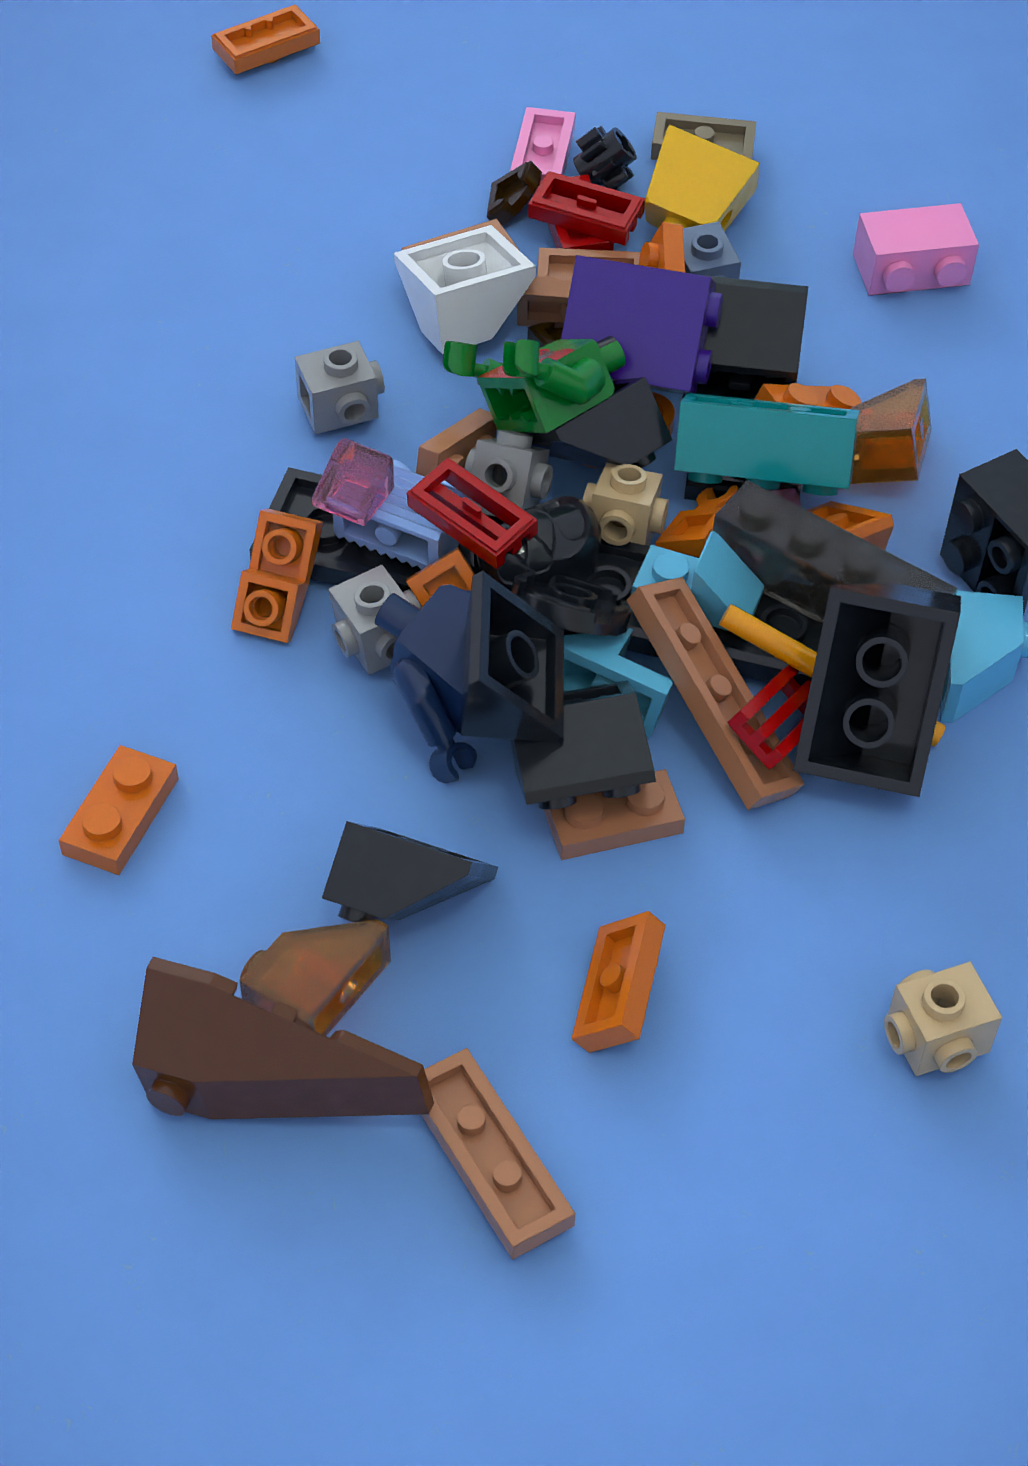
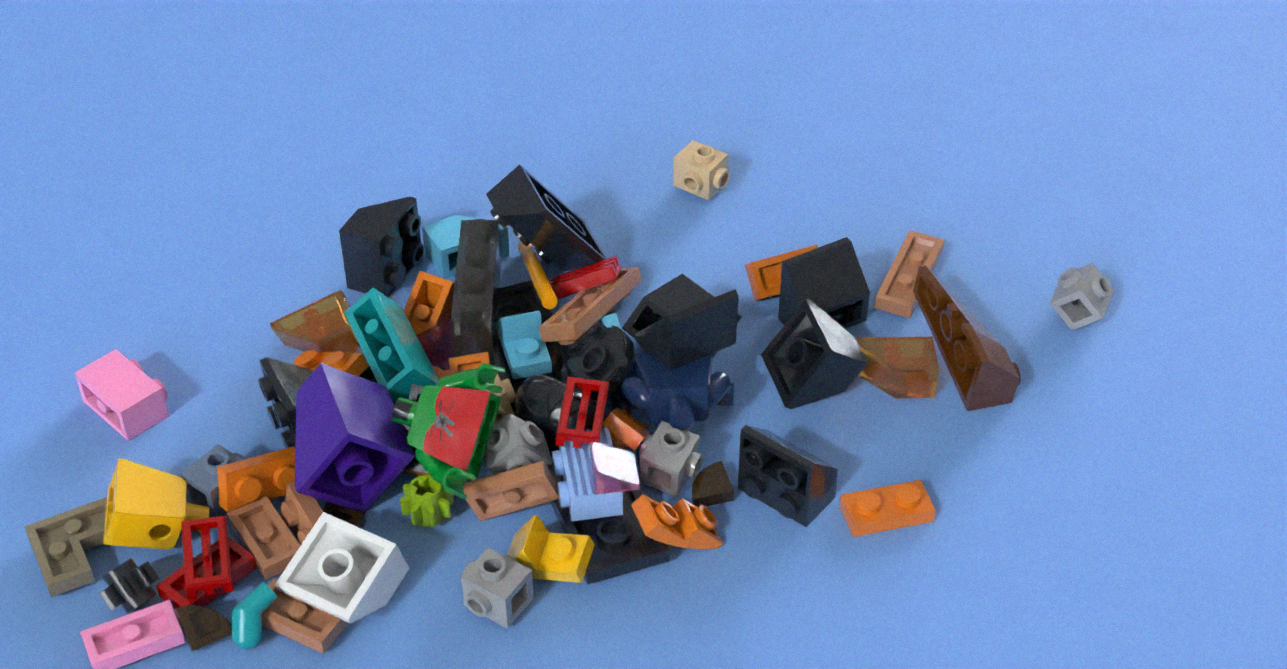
camera: 125 degrees left, 10 degrees down
(216, 1327) = (1081, 296): none -> light grey brick
(243, 702) = (784, 475): none -> black slope
(316, 664) = (712, 486): none -> dark brown tile
(350, 420) = (551, 554): none -> yellow slope
(478, 211) = (248, 616): none -> teal arm
(516, 966) = (829, 279): none -> black slope

